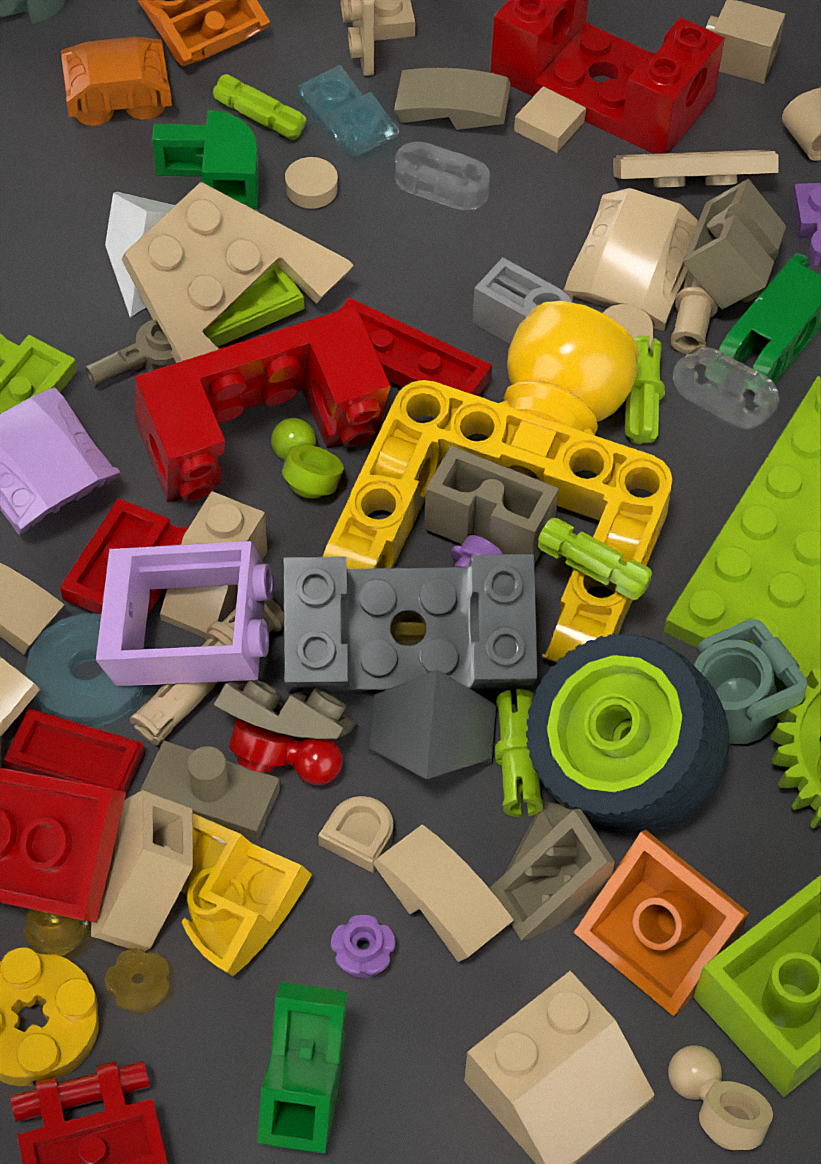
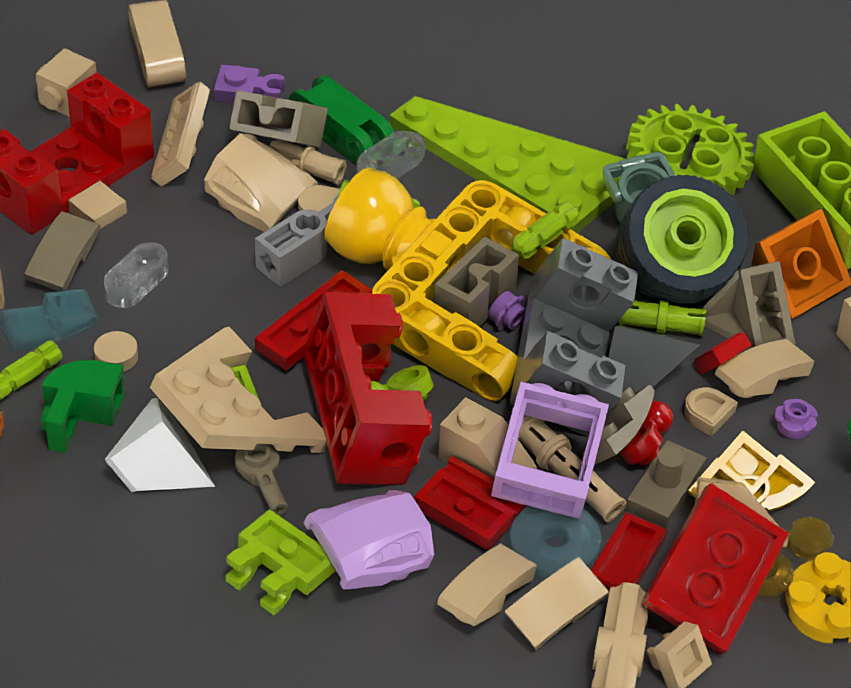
camera: 80 degrees left, 10 degrees down
(455, 830) = (721, 352): none -> red tile

